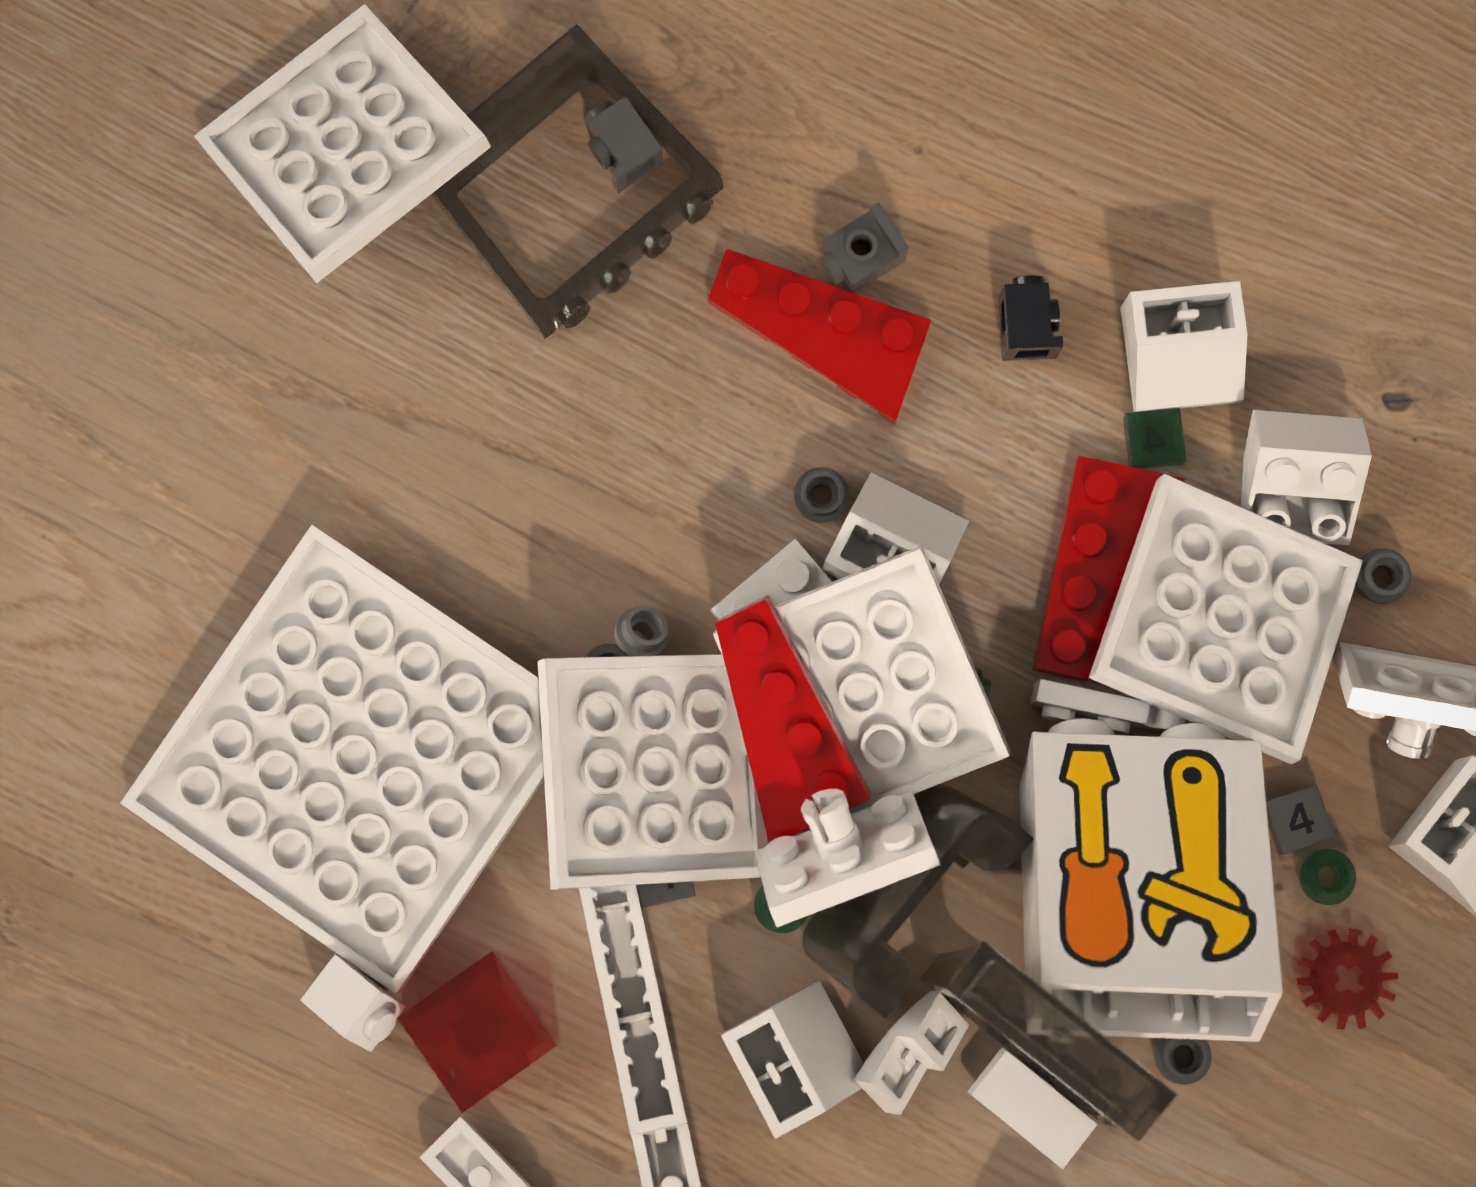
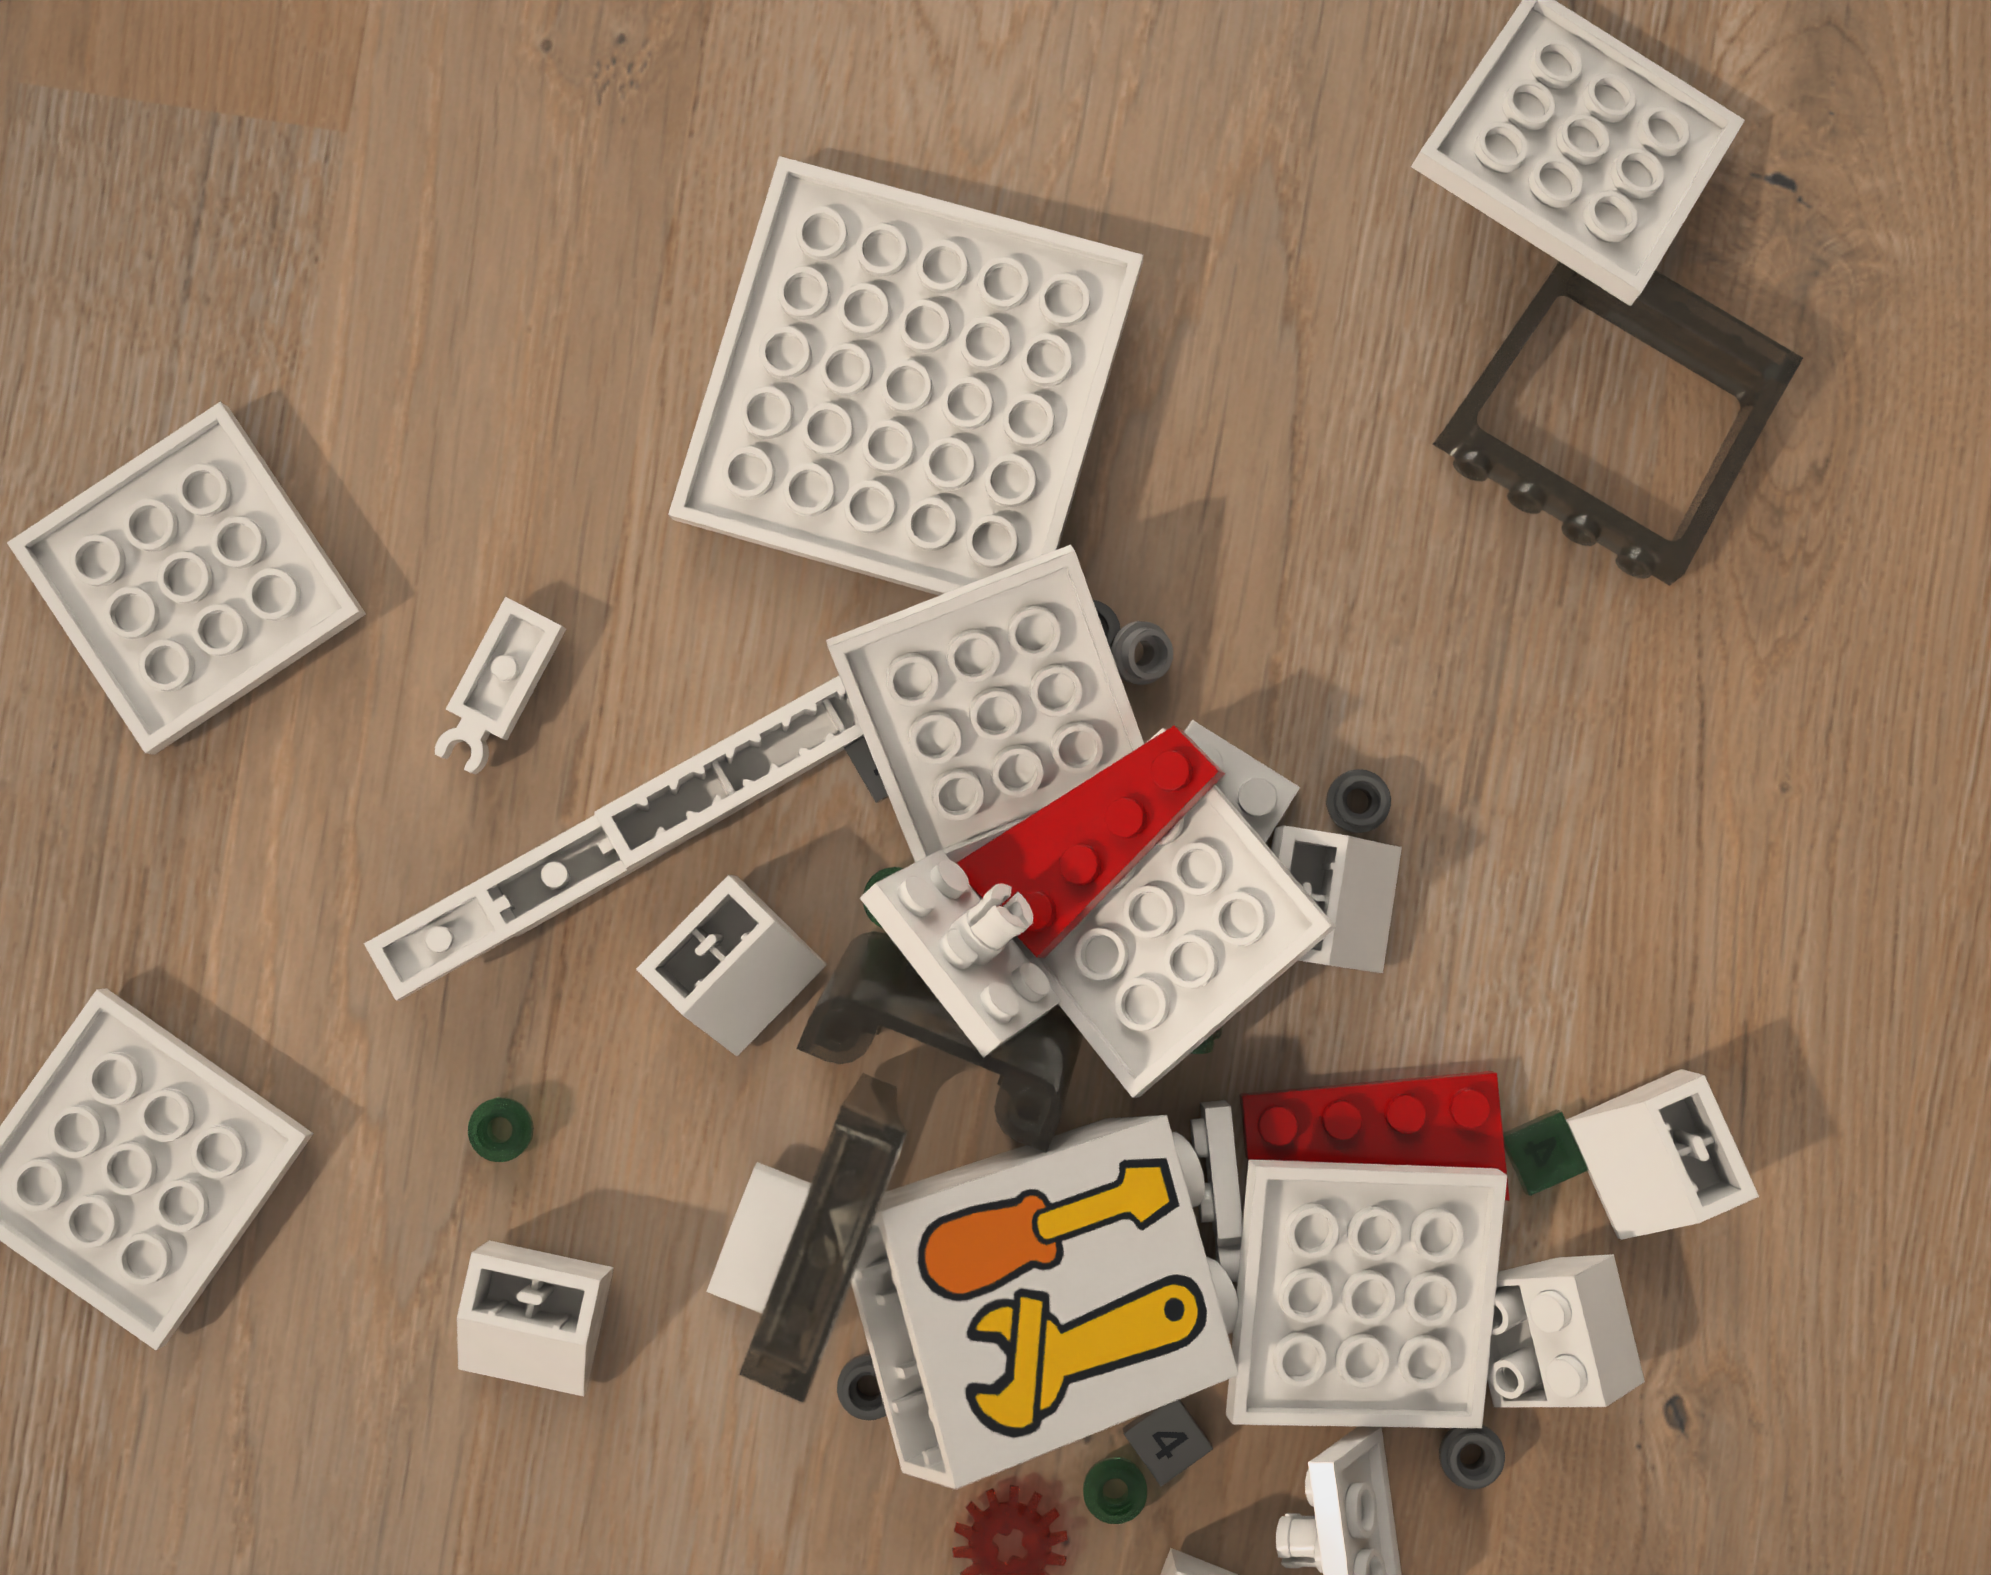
camera: 80 degrees right, 5 degrees up
(353, 1003) = (642, 472): white brick -> none
(478, 1030) = (657, 615): clear red brick -> none
(623, 143) = (1682, 455): dark grey brick -> none
(838, 333) = (1546, 753): red wing -> none
(855, 270) = (1625, 763): dark grey brick -> none
(916, 1042) = (794, 1092): white slope -> none
(1028, 320) = (1632, 970): black brick -> none

